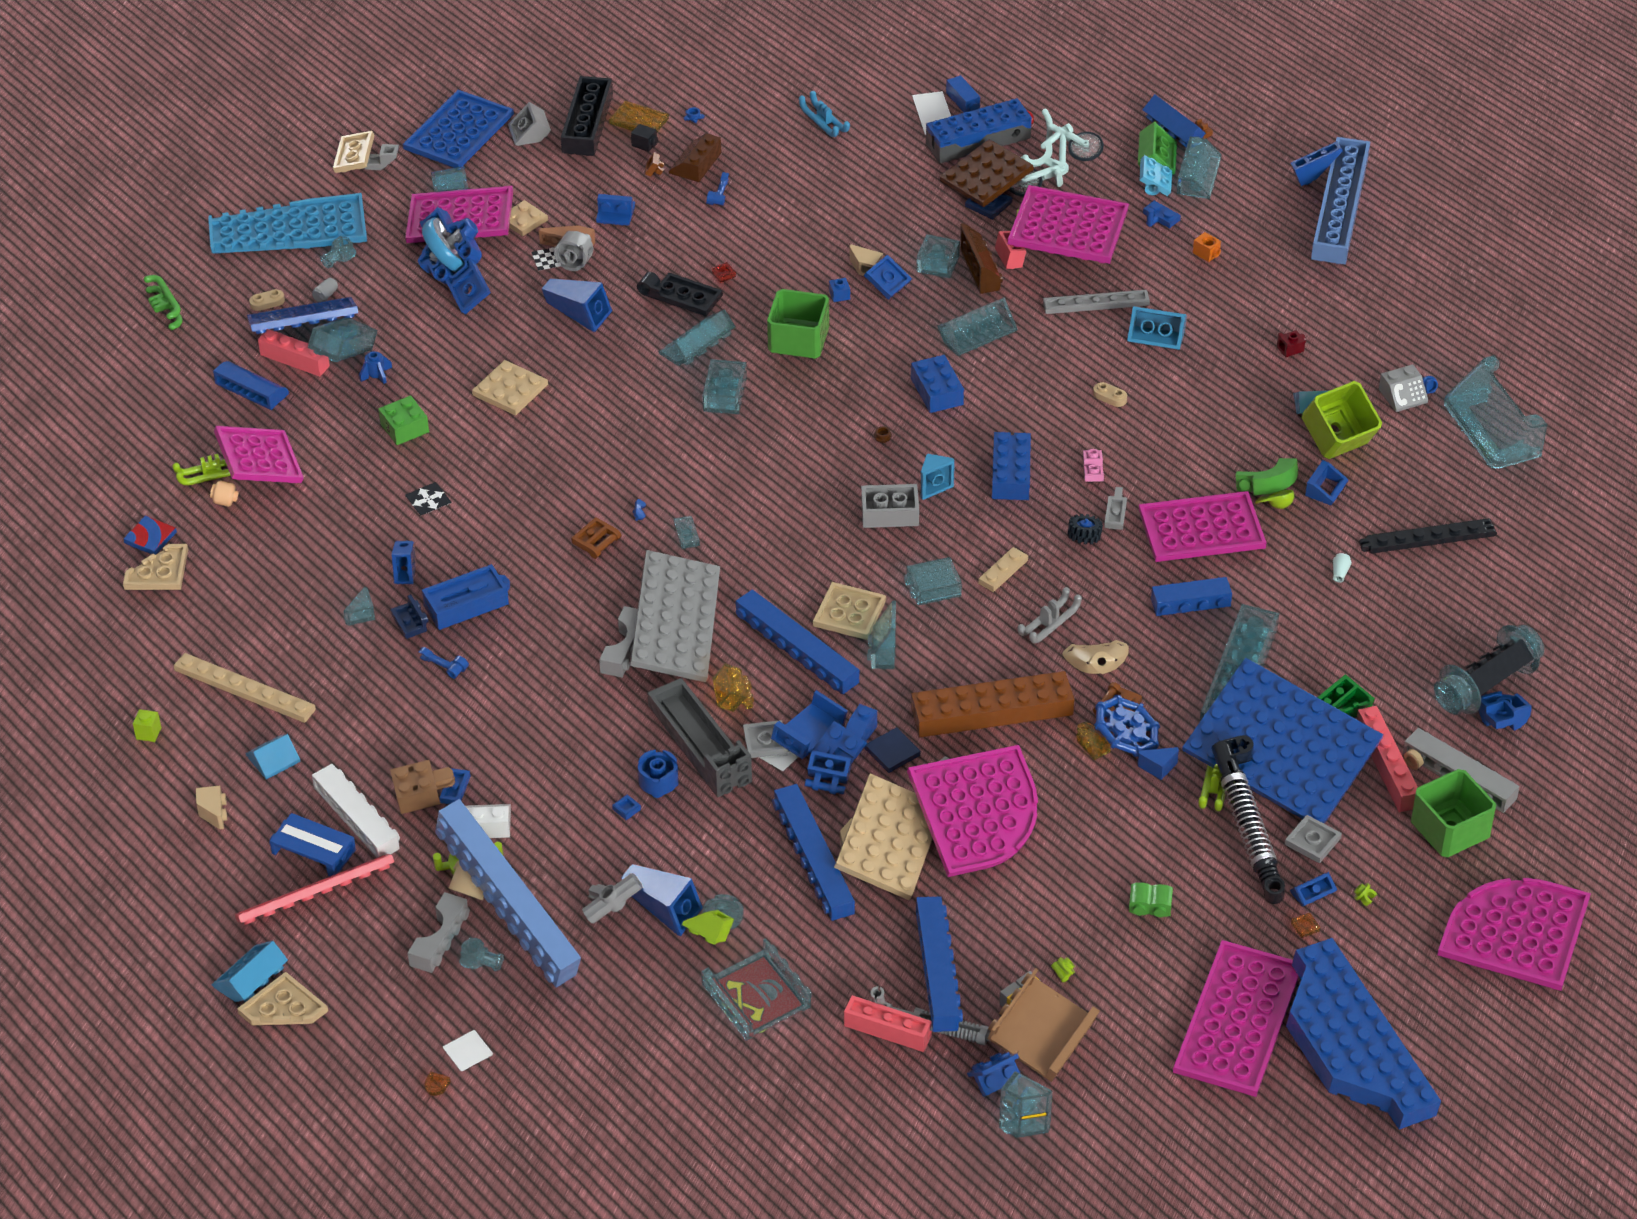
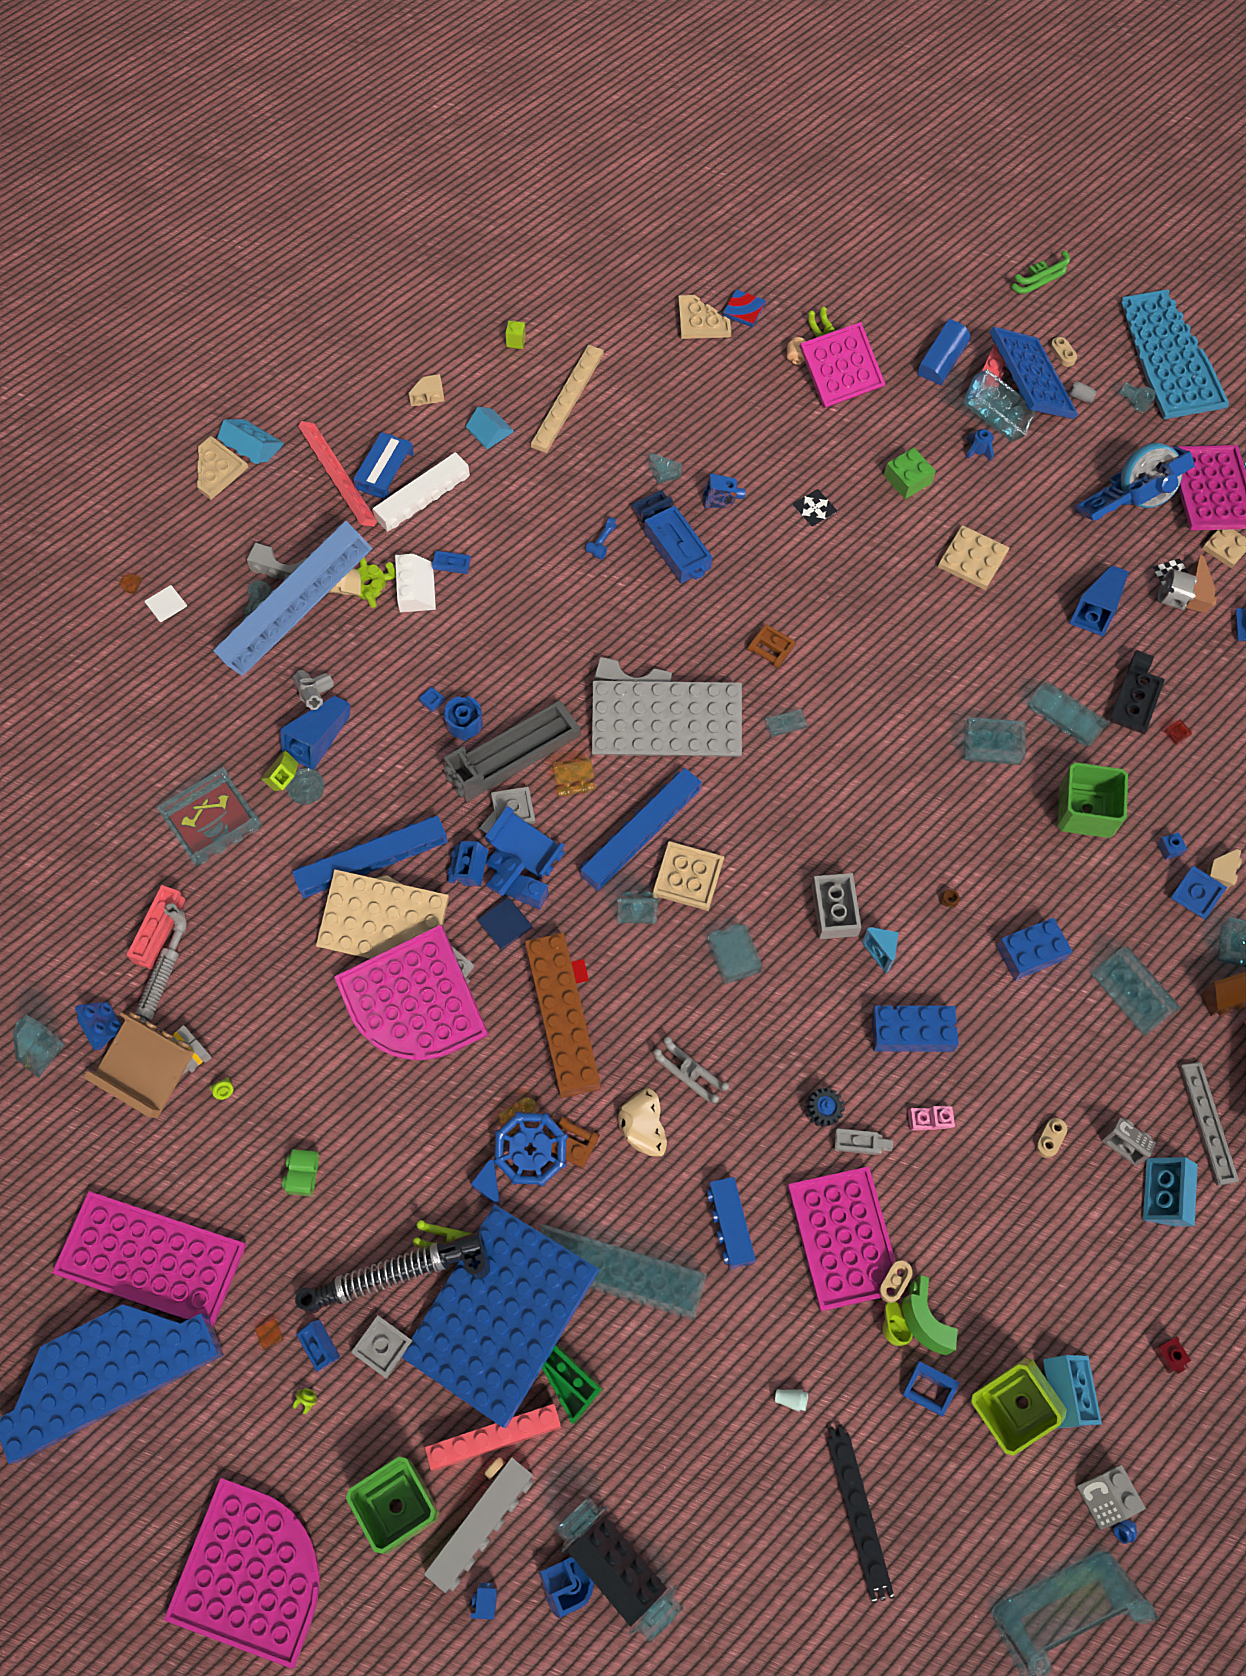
camera: 85 degrees right, 20 degrees up
(418, 785) = (448, 532): medium nougat brick -> none
(638, 512) = (809, 680): blue piece -> none
(937, 964) = (219, 967): blue brick -> none
(1003, 569) = (762, 1025): tan plate -> none
(1116, 344) = (1129, 1141): none -> light grey slope
(1241, 491) = (895, 1282): none -> tan plate
(1523, 766) = (484, 1601): none -> blue brick

